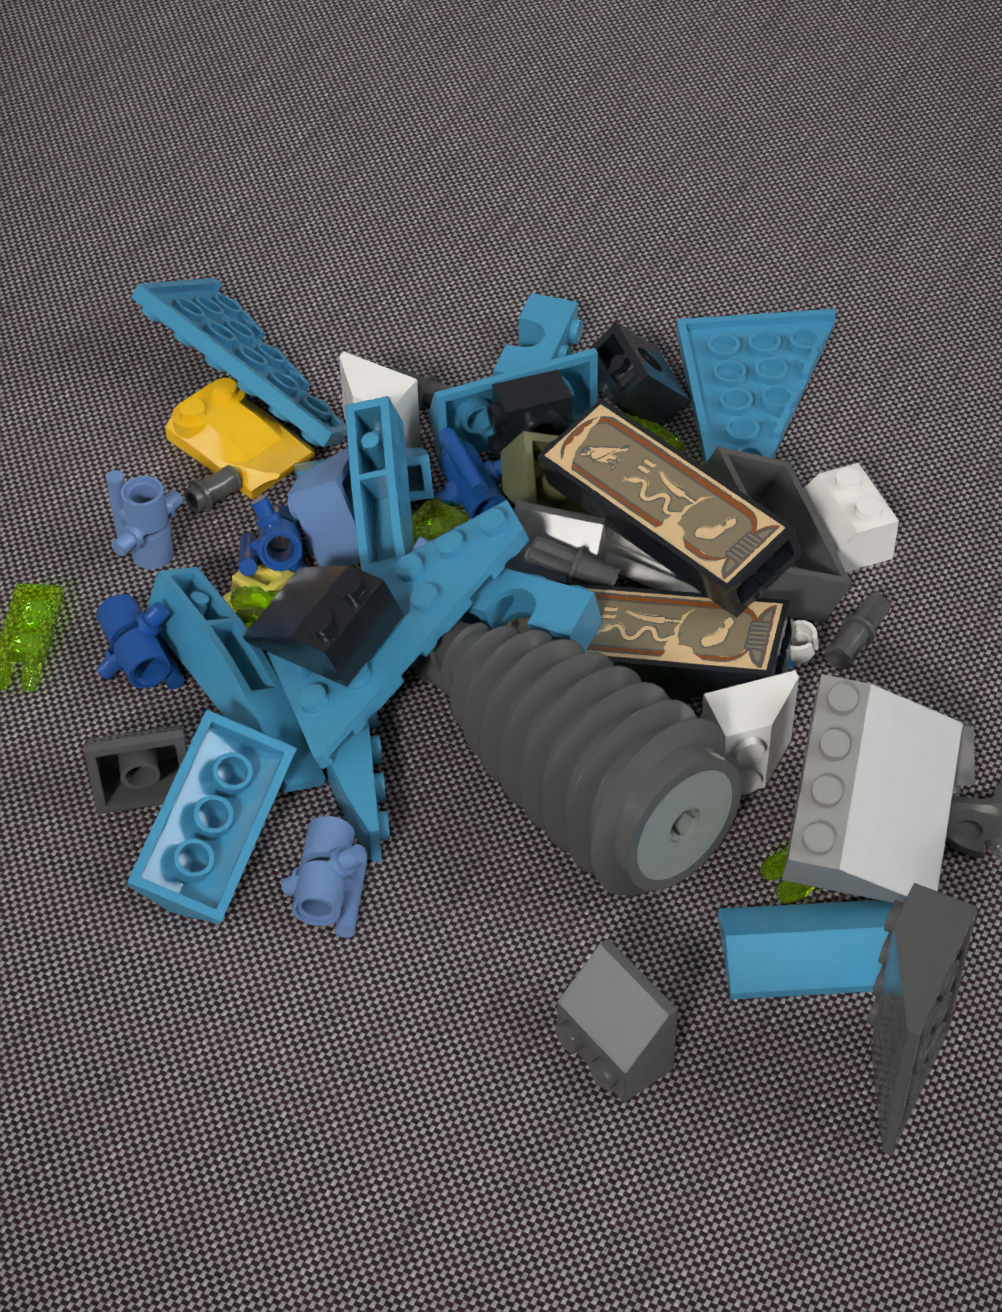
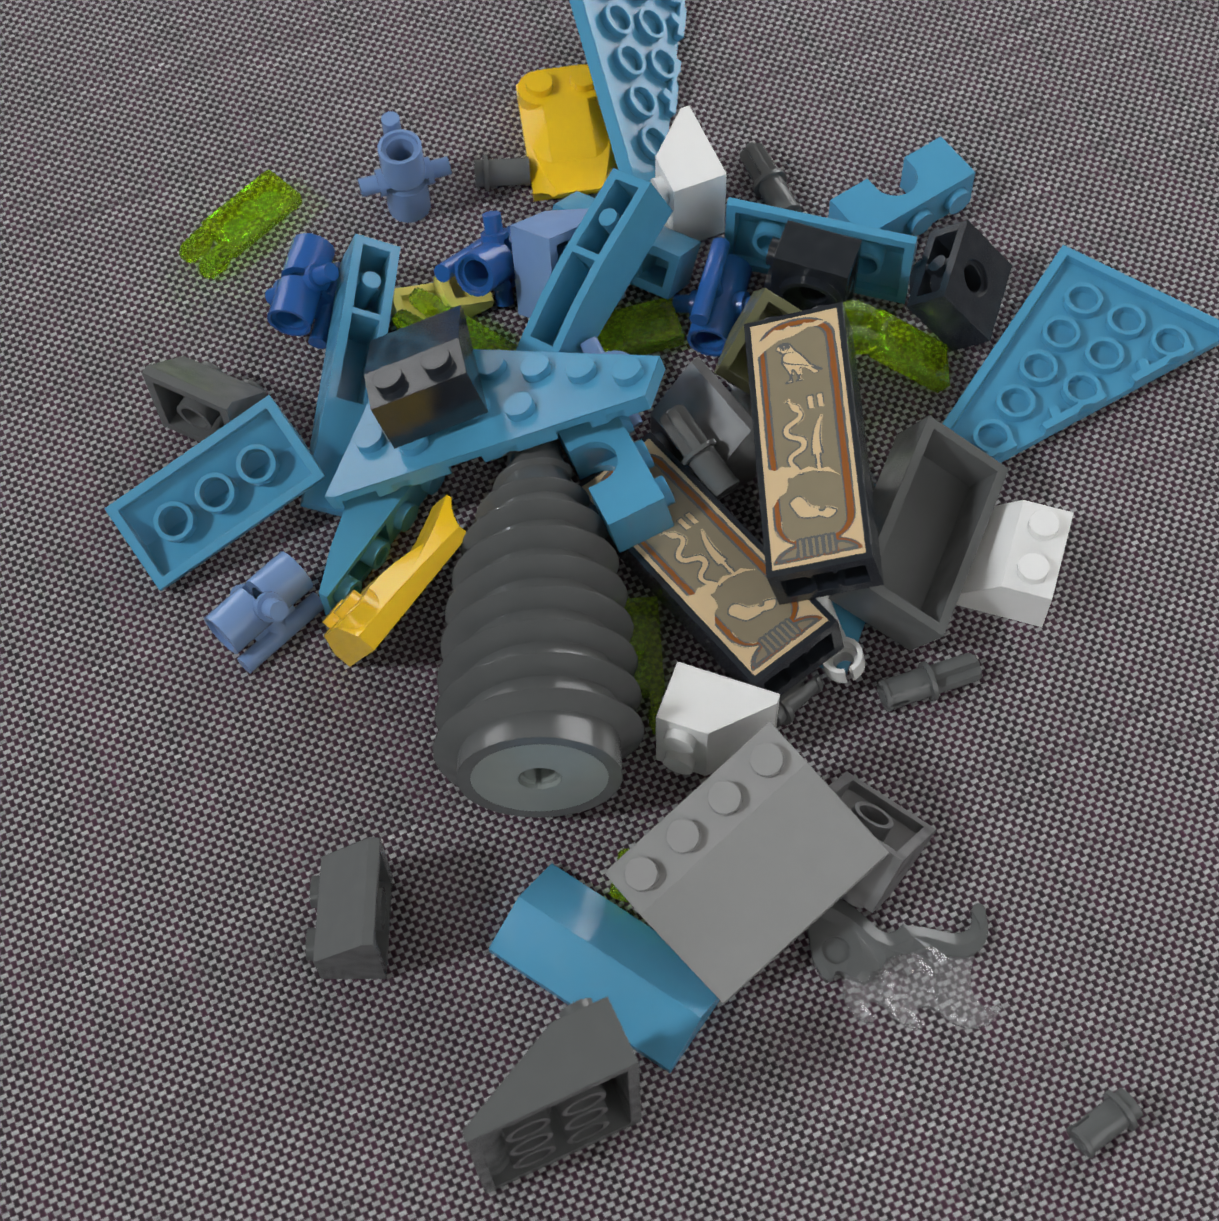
camera: 40 degrees right, 15 degrees up
(434, 789) = (366, 618): none -> yellow slope

